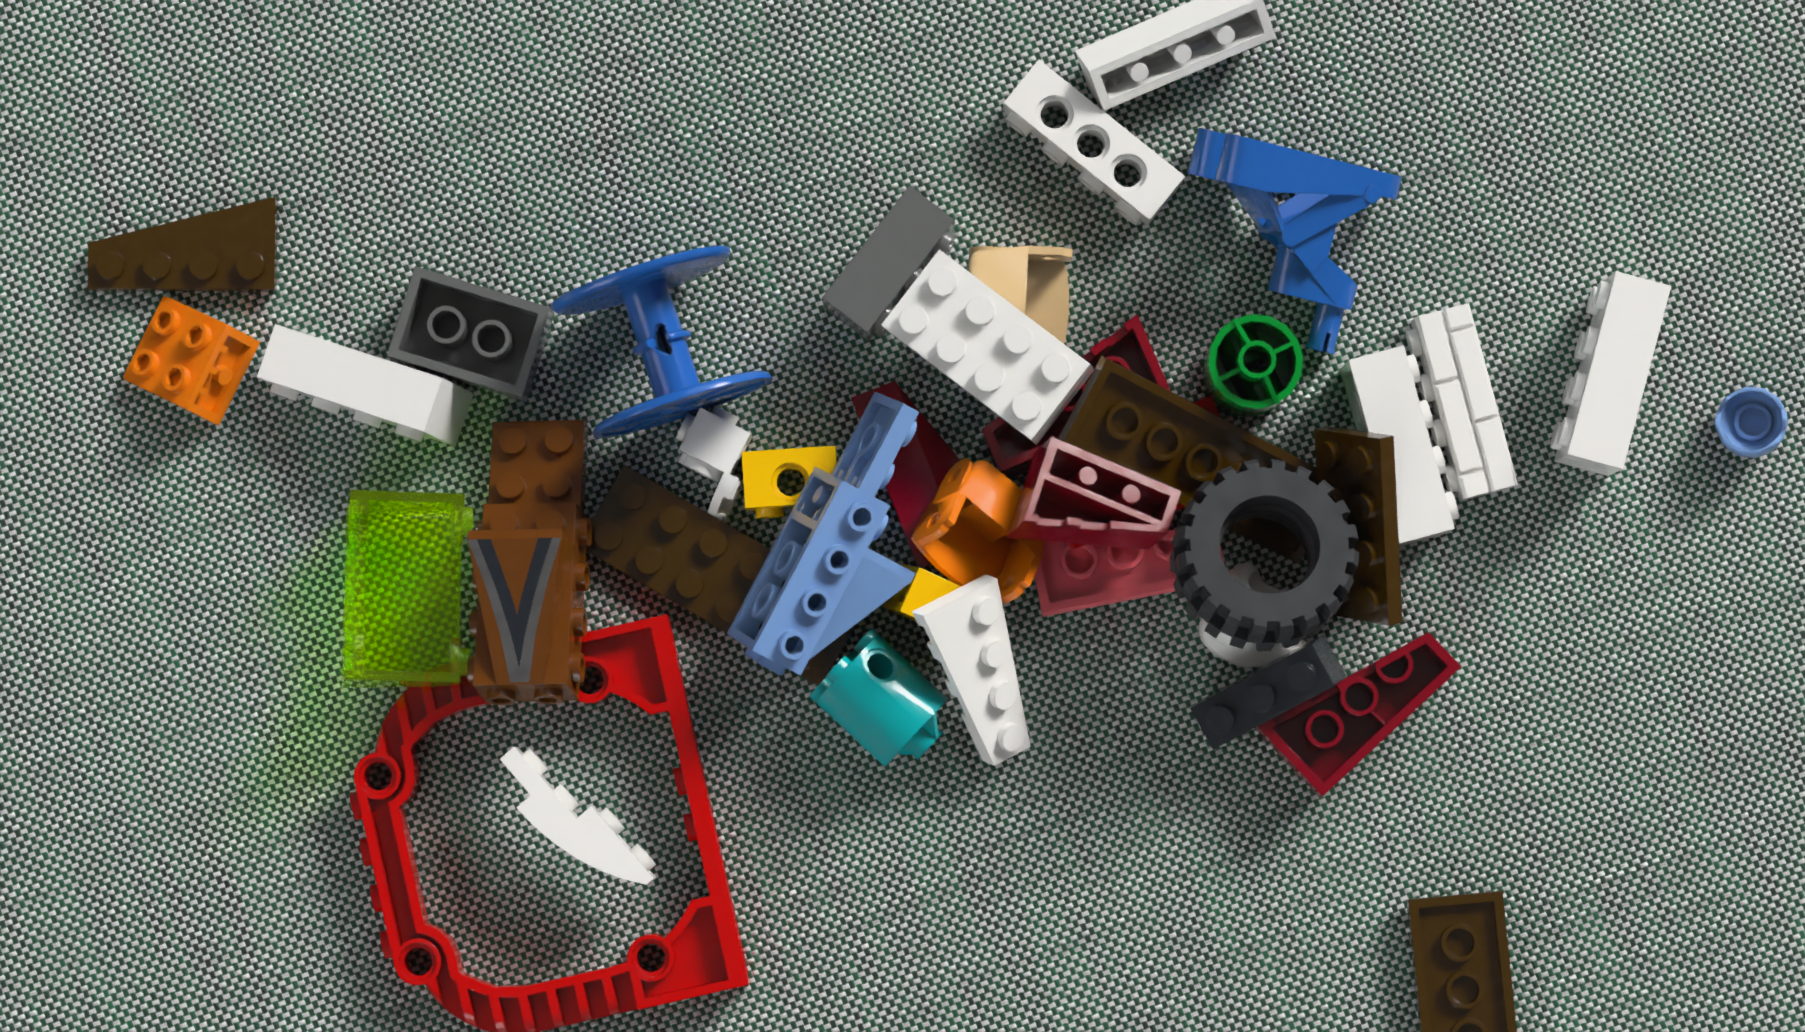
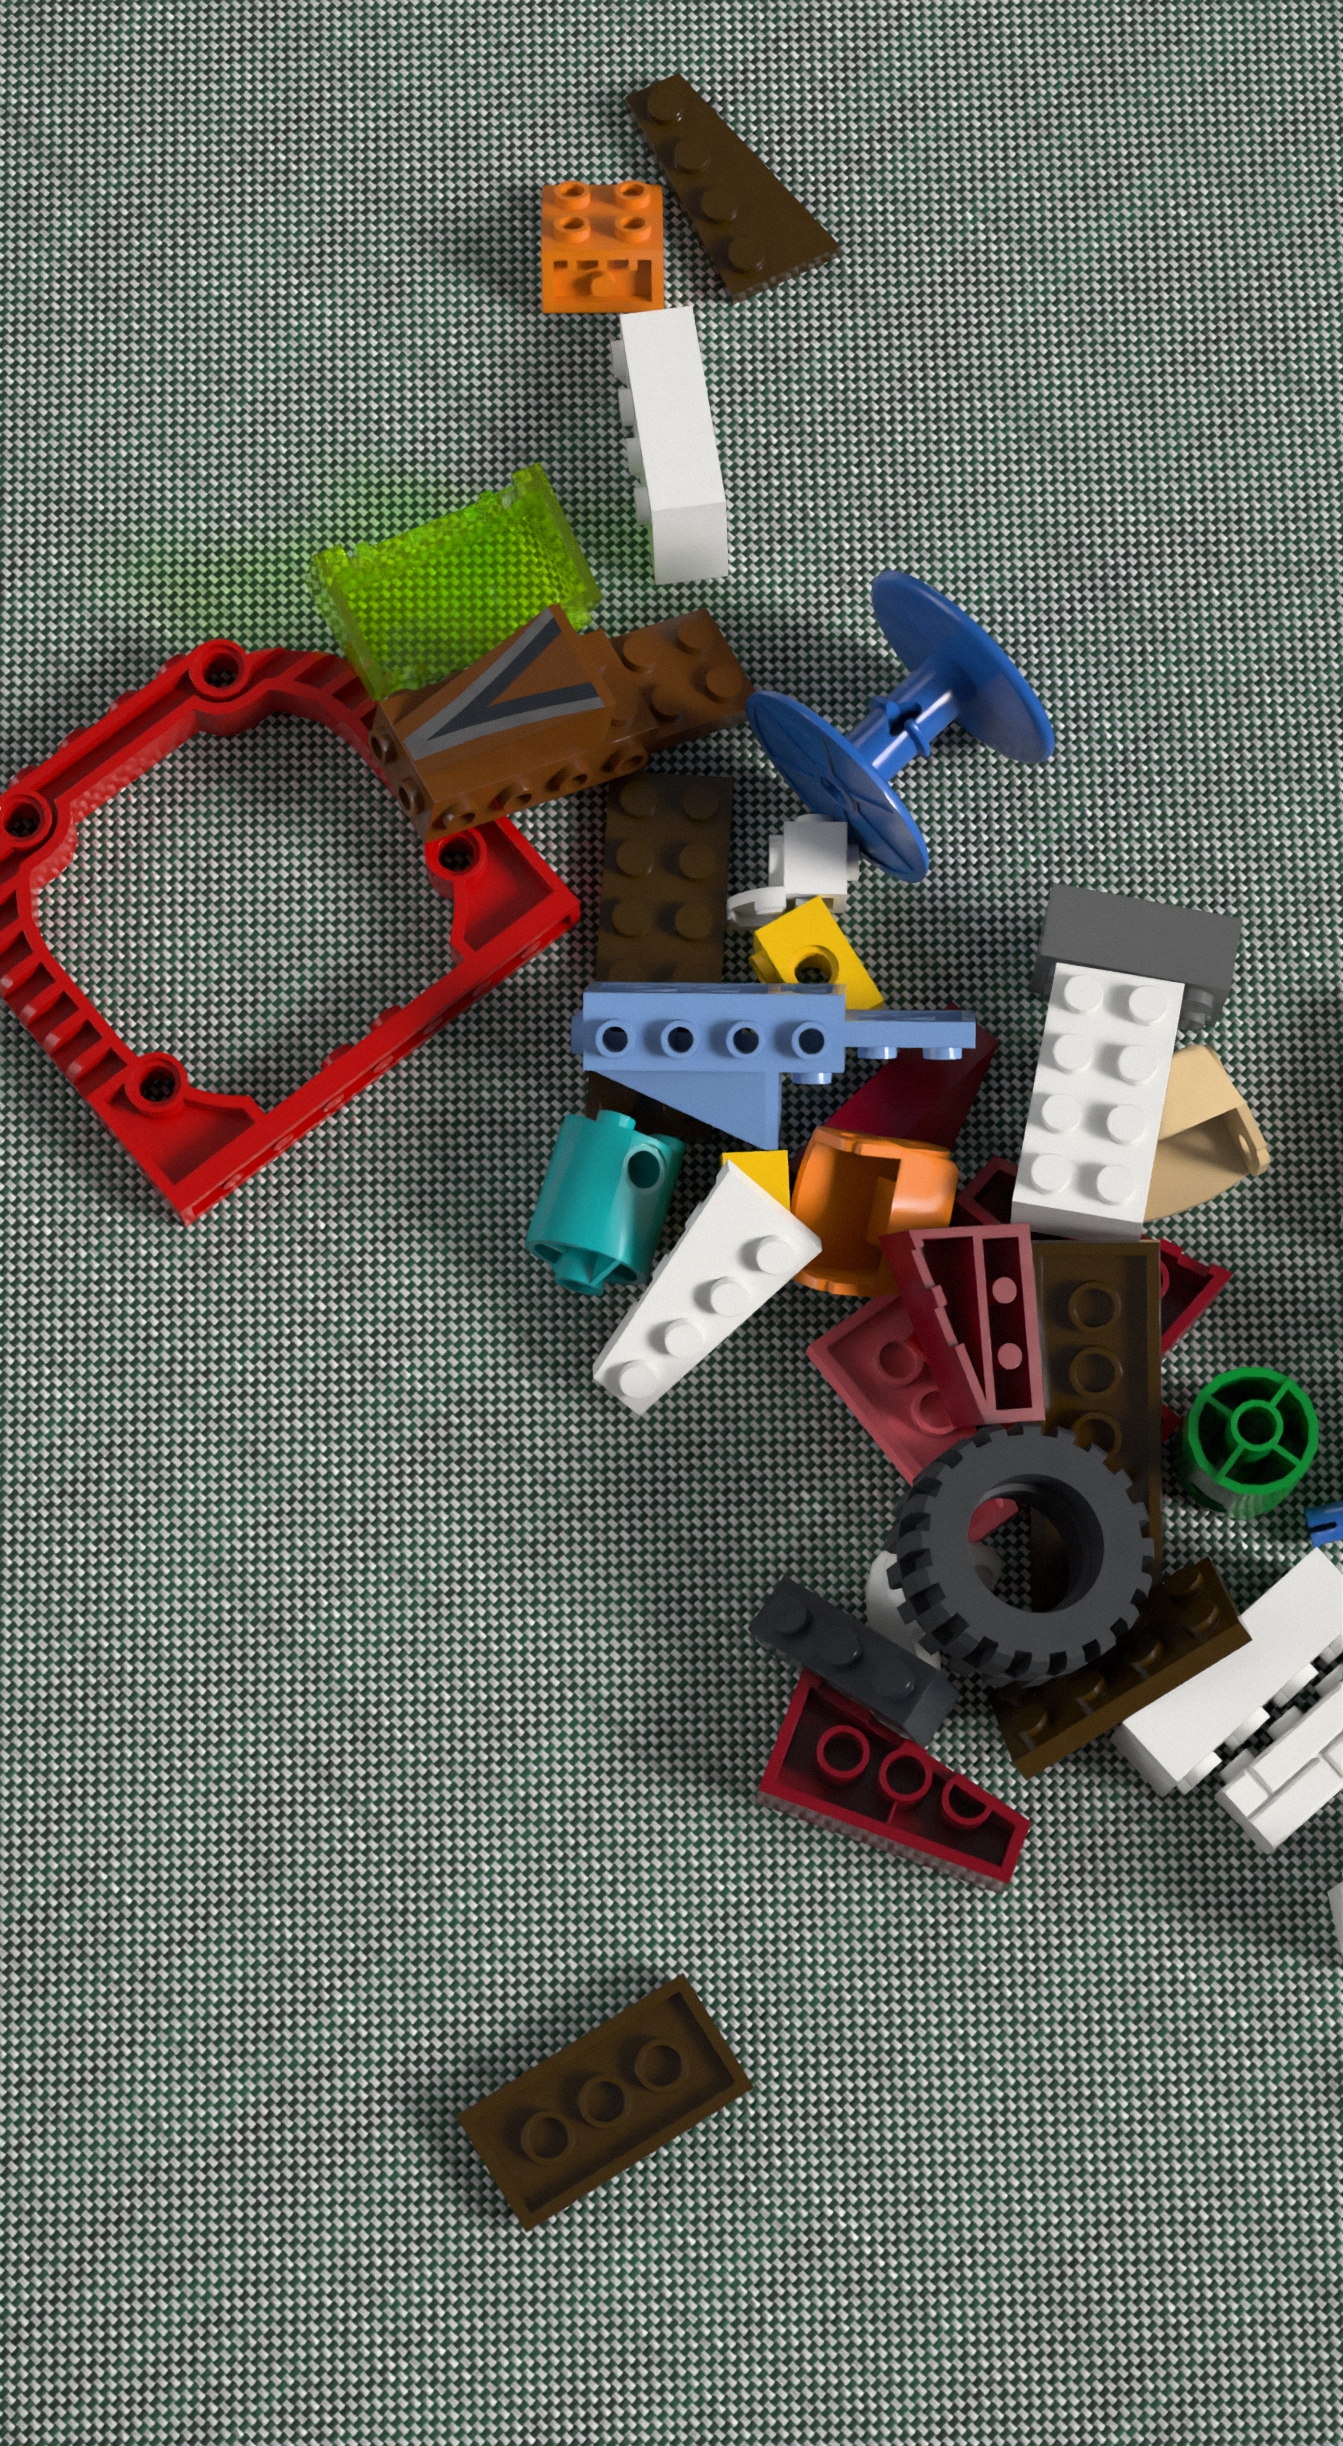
camera: 60 degrees right, 10 degrees down
(470, 334) = (795, 527): dark grey brick -> none
(589, 837) = (265, 928): white slope -> none

